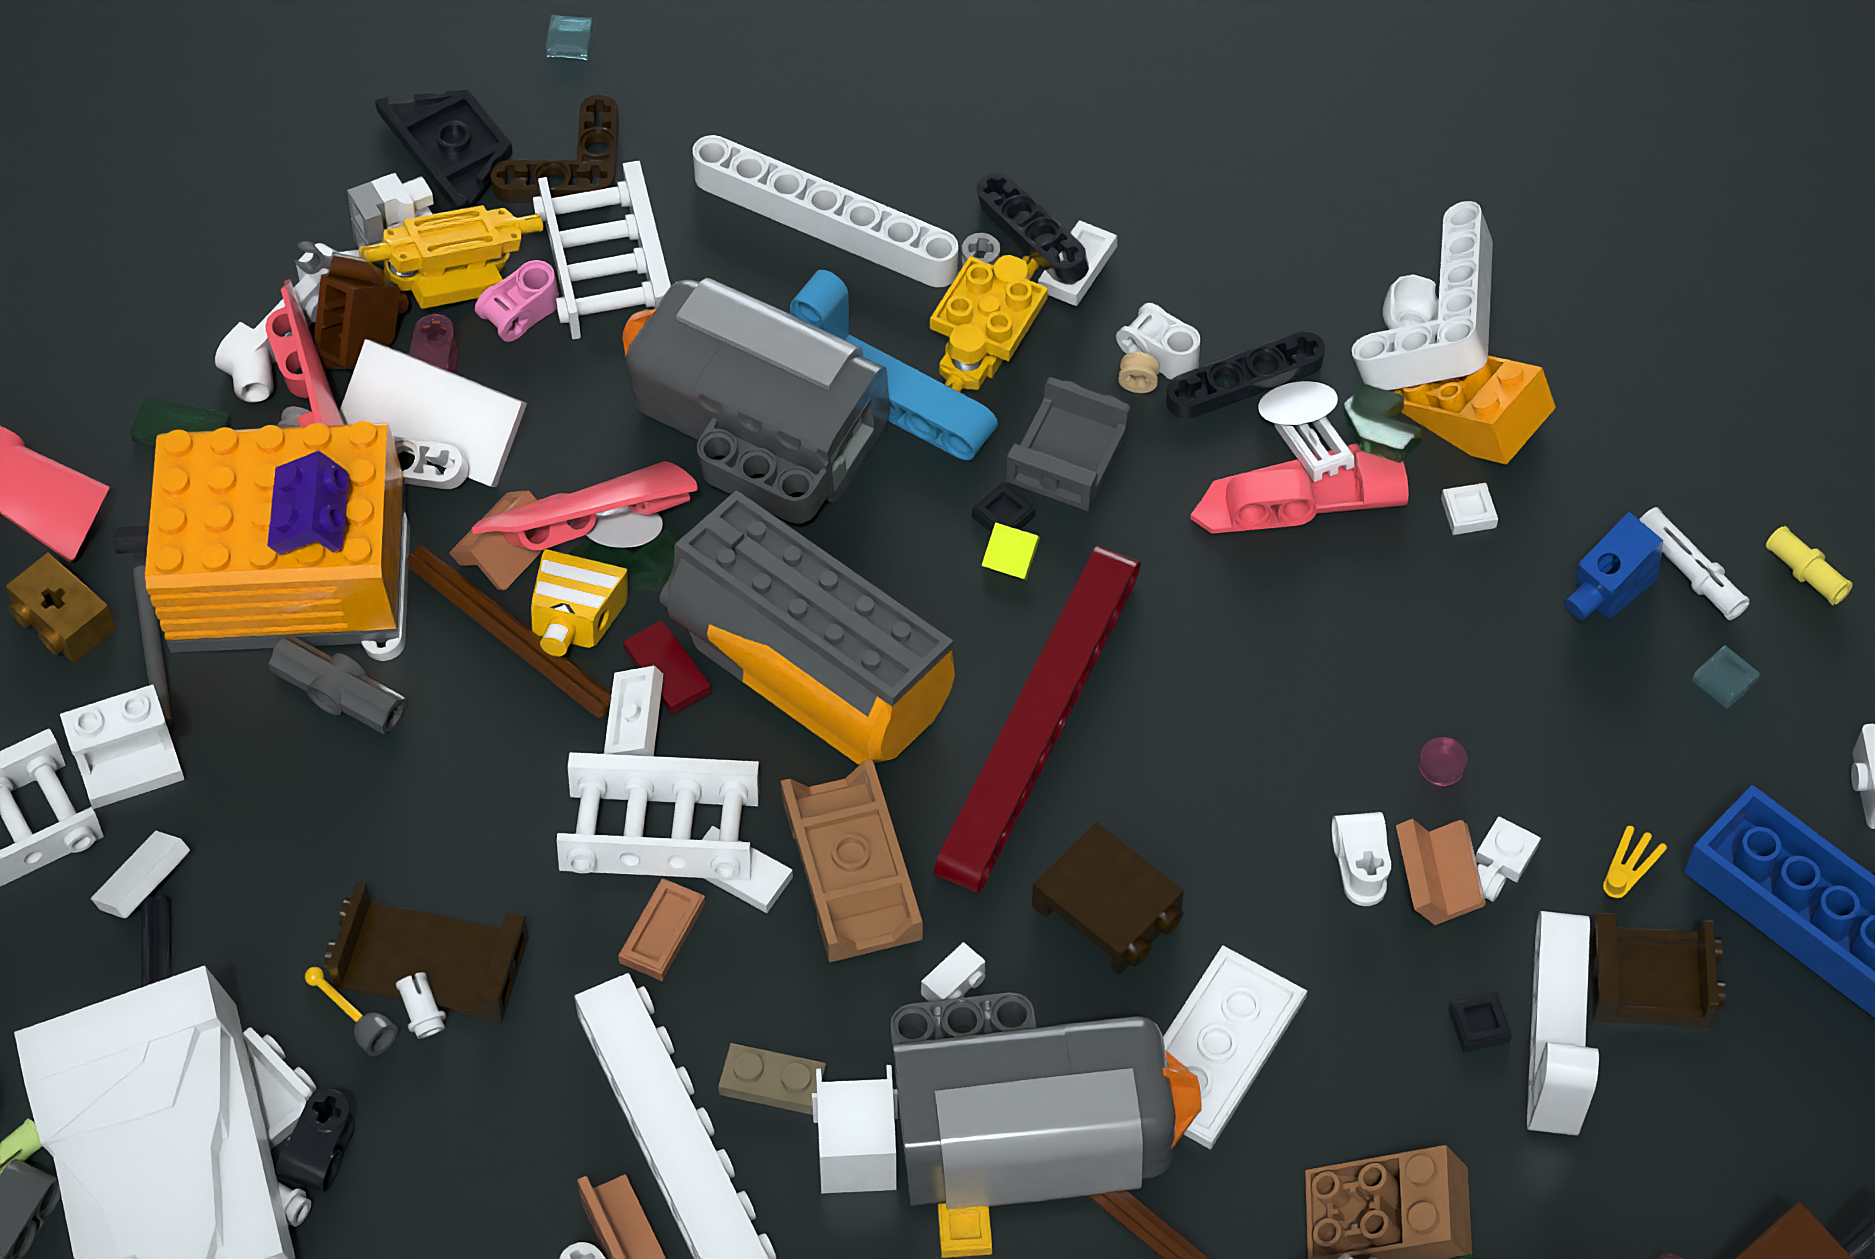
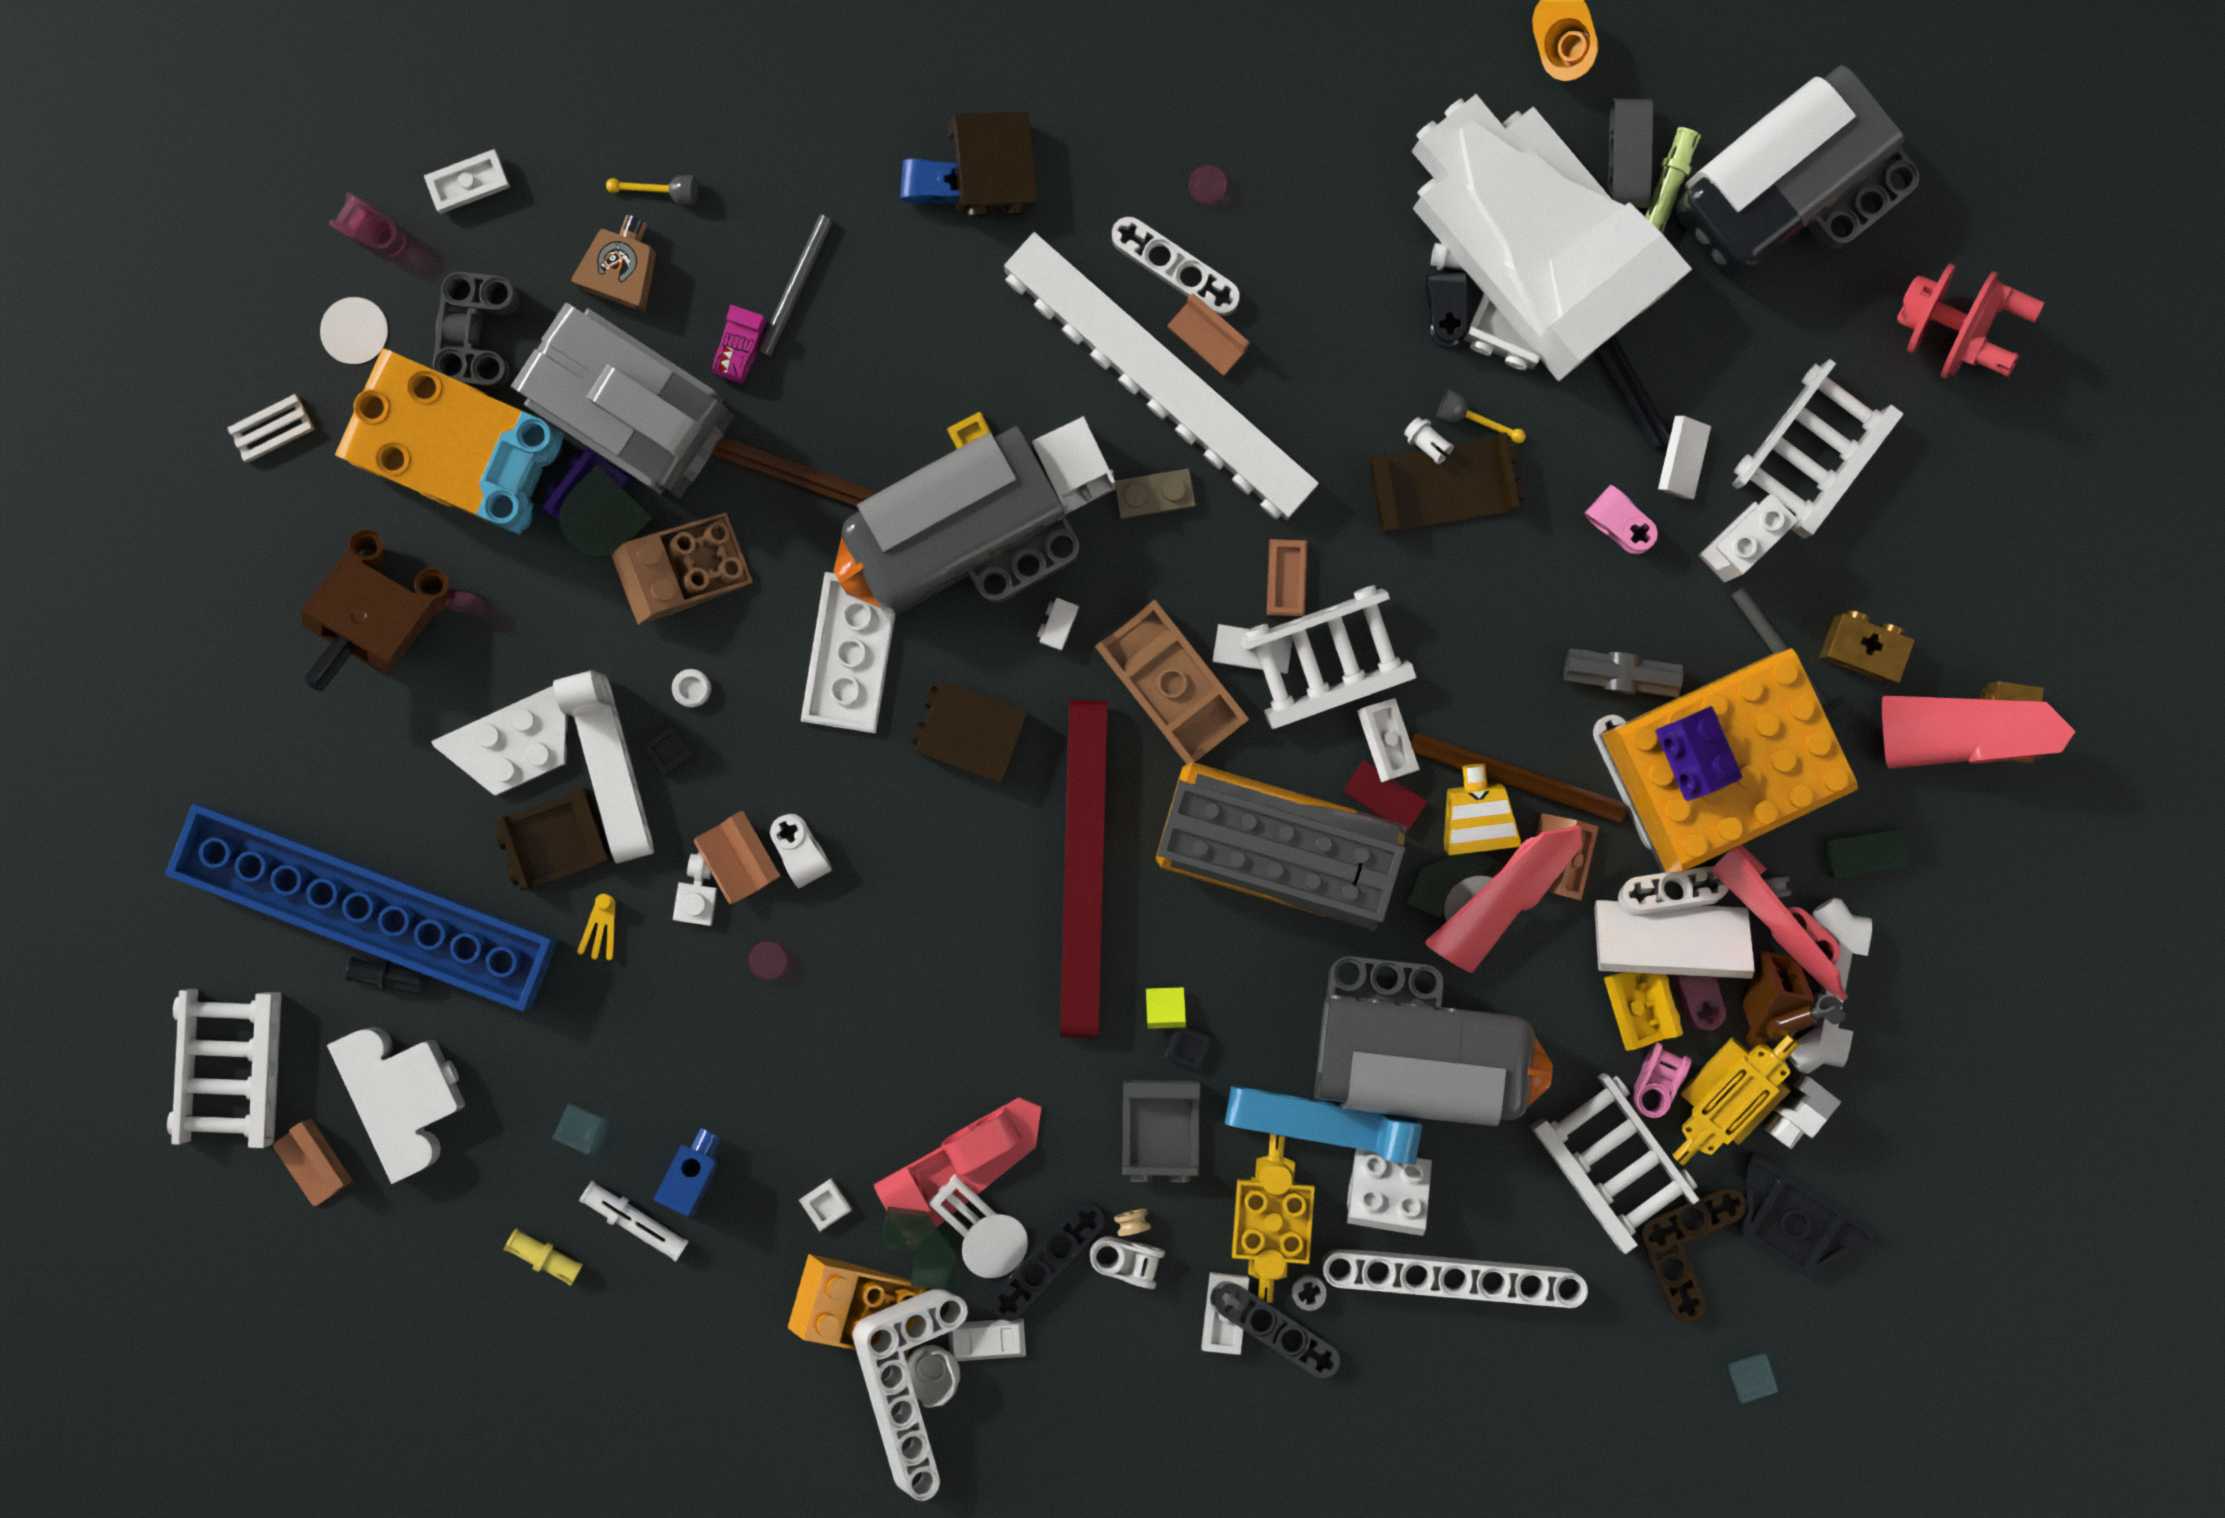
camera: 160 degrees right, 30 degrees up
(248, 835) = (1615, 515): none -> bright pink piece
(500, 360) = (1643, 1008): none -> yellow bracket
(873, 293) = (1388, 1193): none -> white plate
(1336, 327) = (988, 1340): none -> white tile
(1426, 1079) = (691, 688): none -> white tile
(1671, 1102) = (511, 743): none -> white wing

